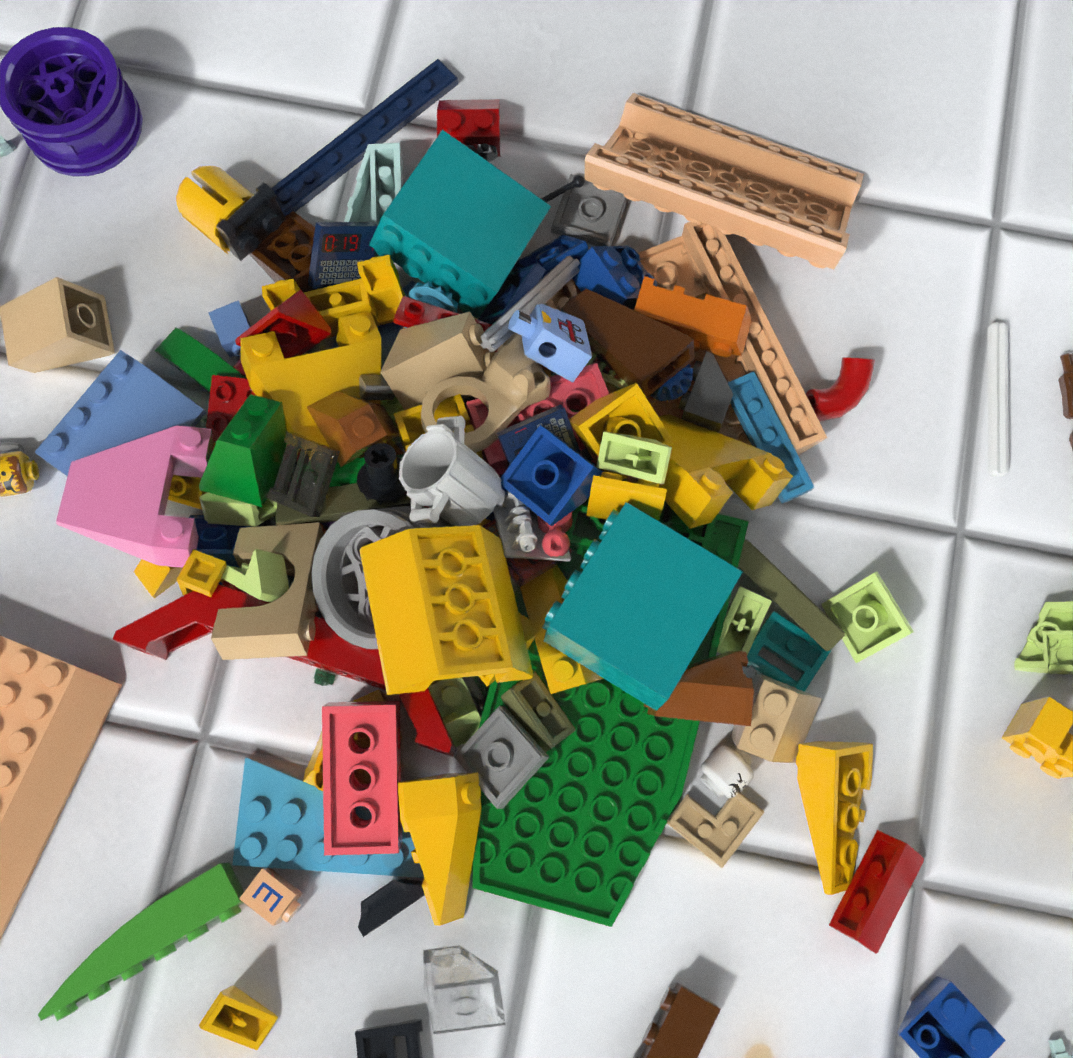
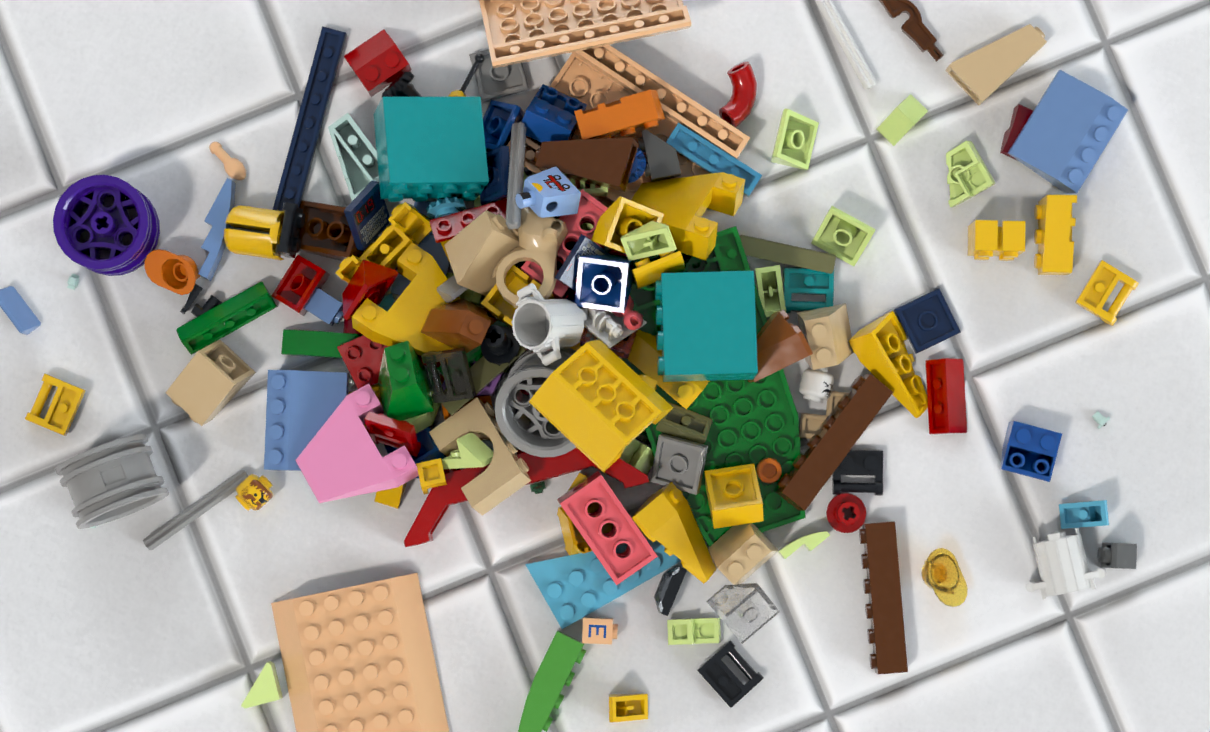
camera: 30 degrees left, 10 degrees up
(99, 240) = (197, 309): none -> black piece
(106, 193) = (172, 271): none -> orange piece
(128, 276) = (226, 318): none -> green slope
(163, 204) = (216, 218): none -> medium blue slope
(196, 499) = (392, 432): none -> red plate
(227, 288) = (300, 284): none -> red slope
(247, 136) = (232, 166): none -> light nougat piece
(385, 976) = (693, 631): none -> yellowish green slope
(504, 917) = (741, 552): none -> tan slope
(540, 841) = (734, 496): none -> yellow container
(600, 960) = (810, 542): none -> yellowish green slope
(604, 837) = (768, 470): none -> orange tile
(665, 955) = (846, 513): none -> red gear
(705, 855) = (833, 442): none -> reddish brown brick
(719, 904) = (860, 463): none -> black plate
(873, 476) = (794, 140): none -> yellowish green slope
(907, 784) = (927, 321): none -> dark blue tile
(1012, 533) = (902, 120): none -> yellowish green slope

